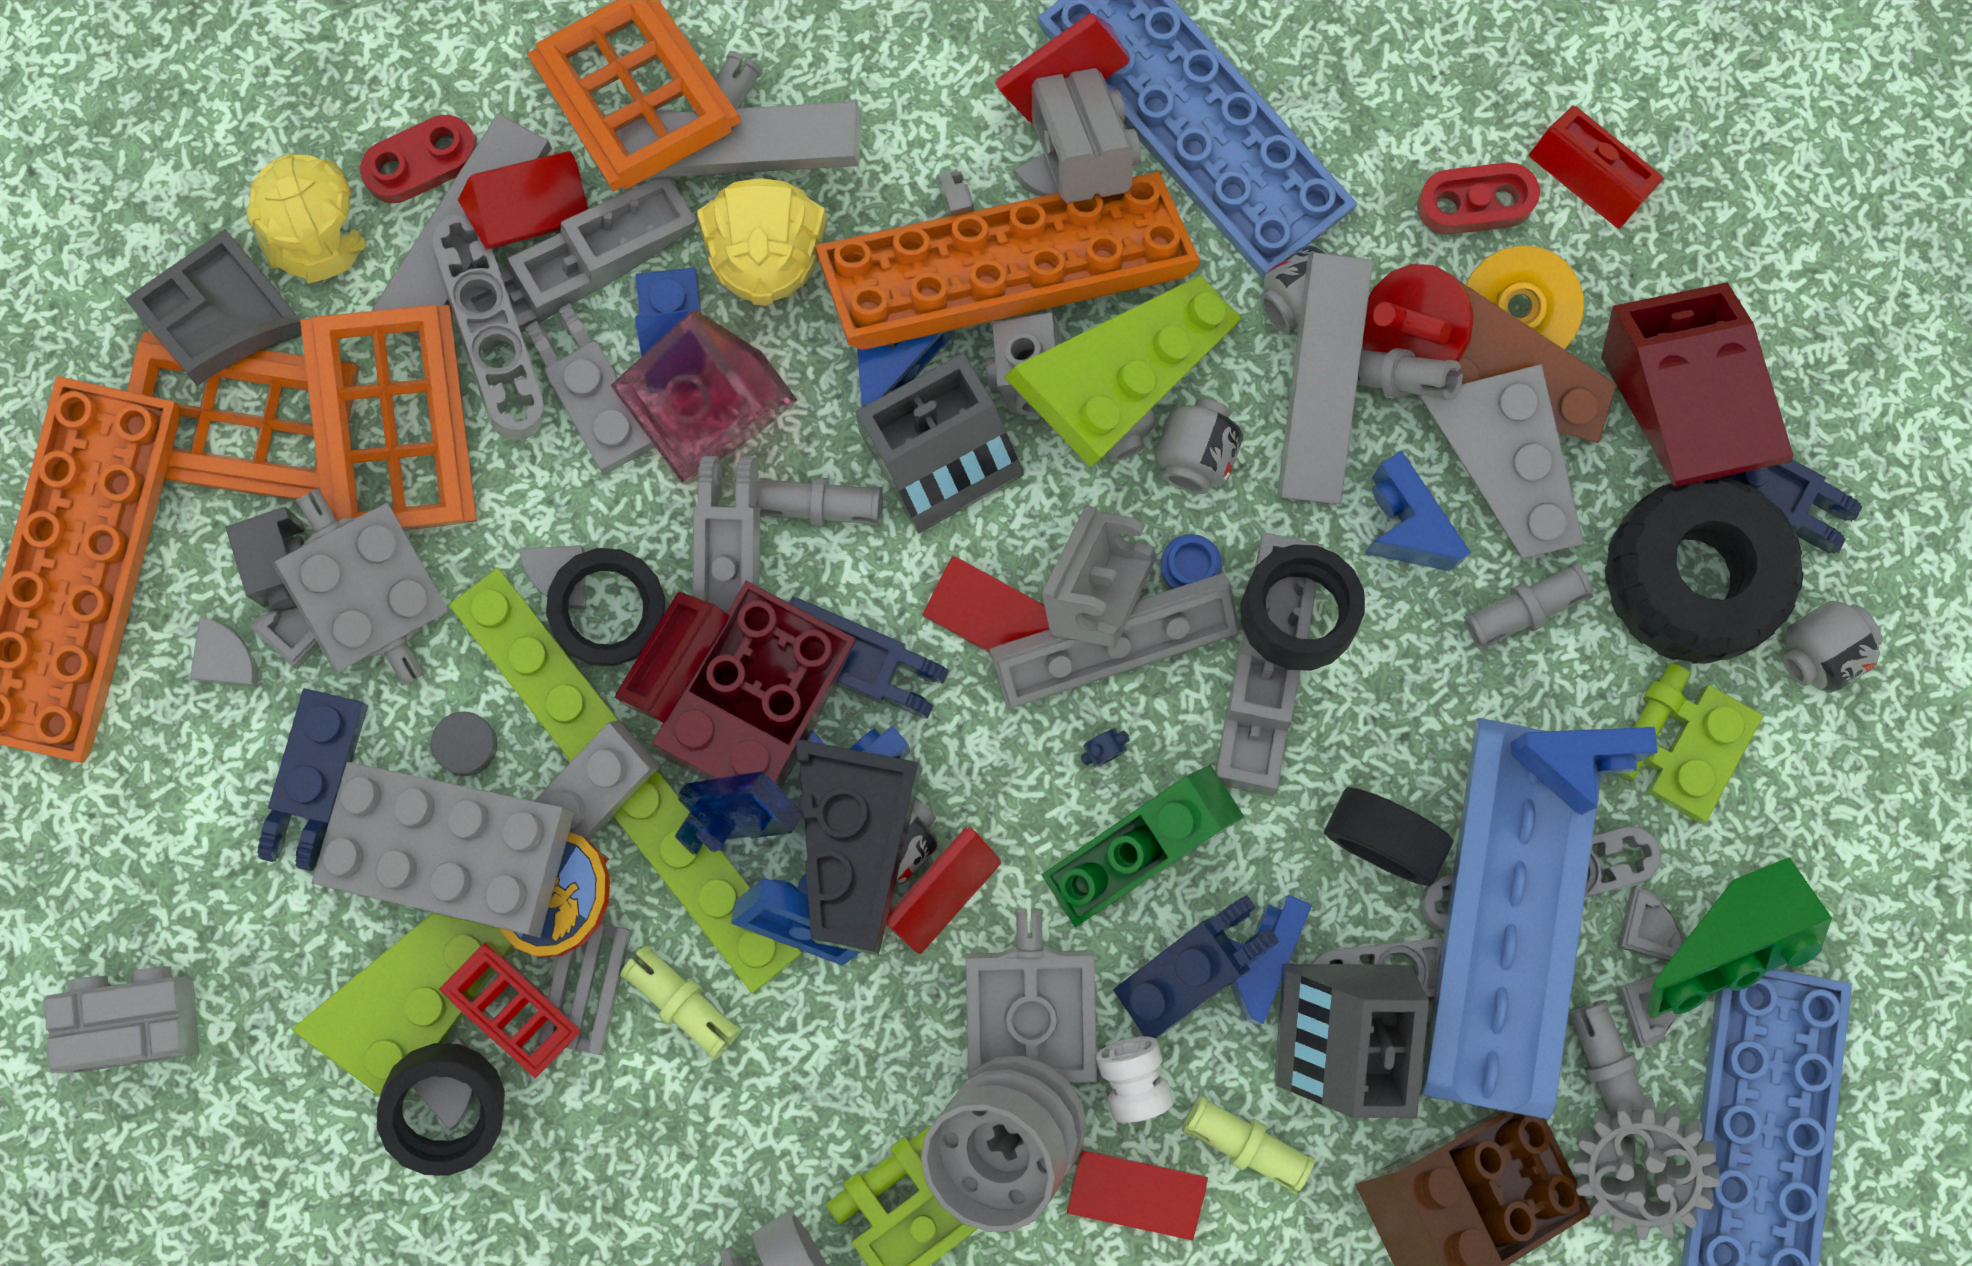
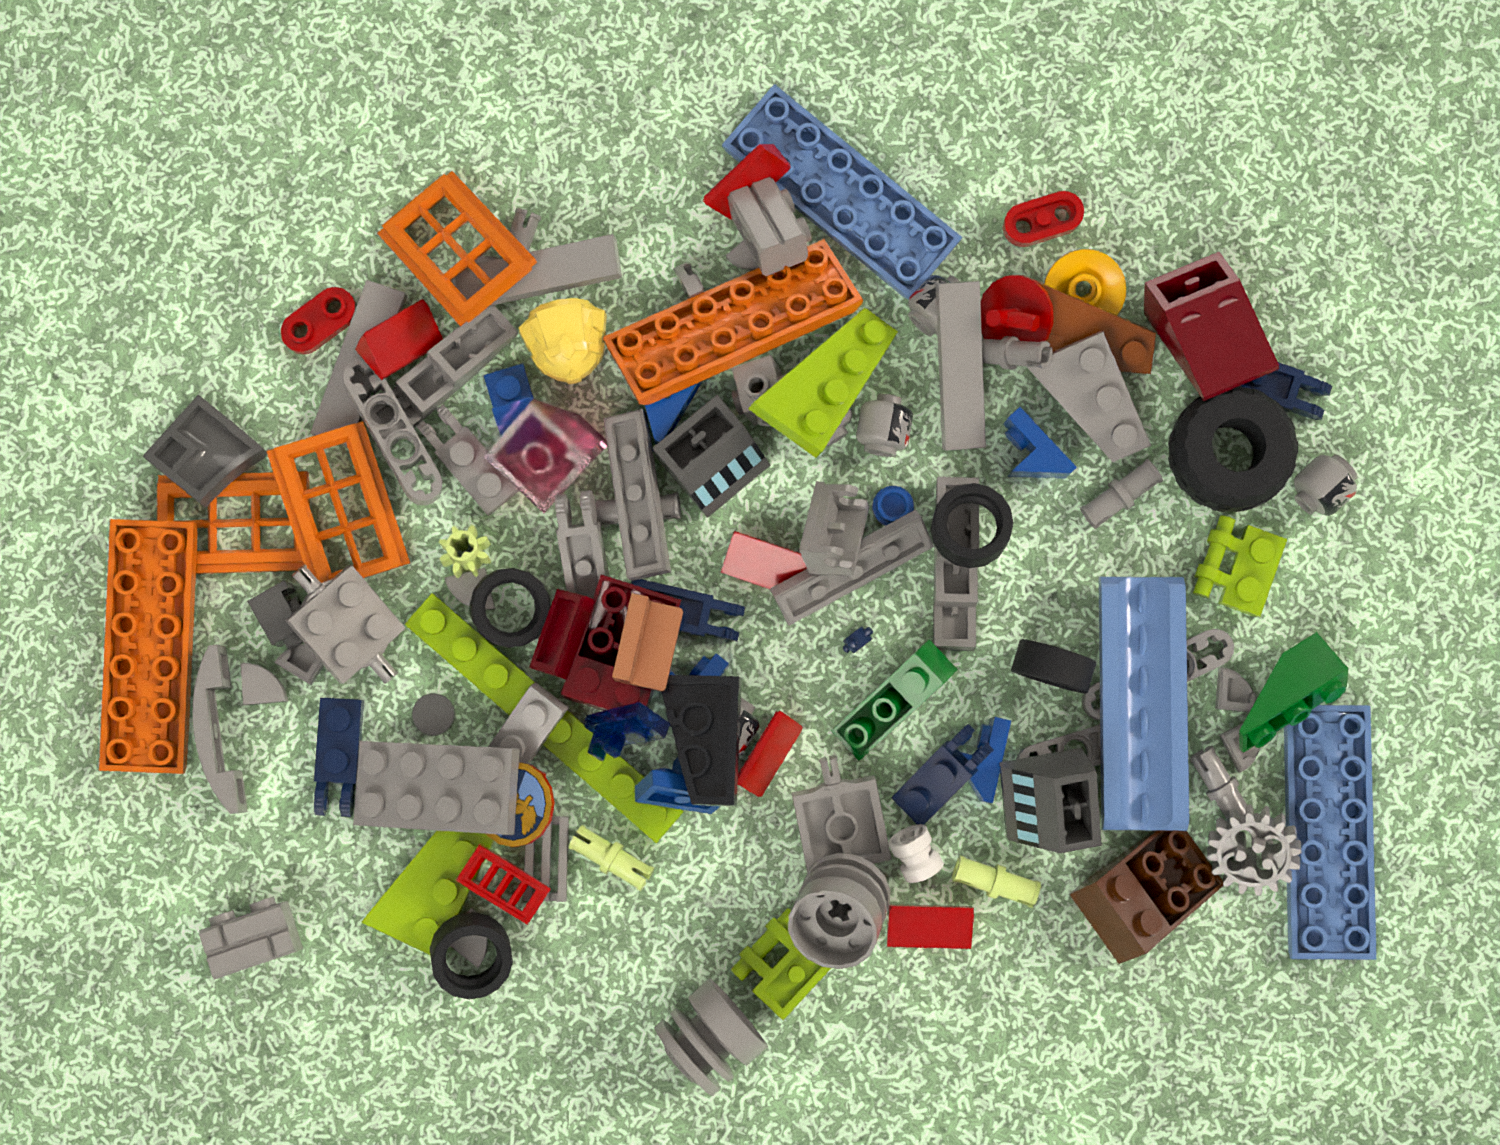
camera: 10 degrees left, 5 degrees up
(152, 628) = (213, 676): none -> light grey slope
(298, 217) = (250, 378): light yellow helmet -> none
(548, 516) = (468, 561): none -> yellowish green gear
(791, 689) = (647, 643): none -> nougat panel
(820, 479) = (637, 495): none -> light grey tile
(1568, 758) = (1161, 595): blue slope -> none
(1595, 166) = (1119, 180): red slope -> none

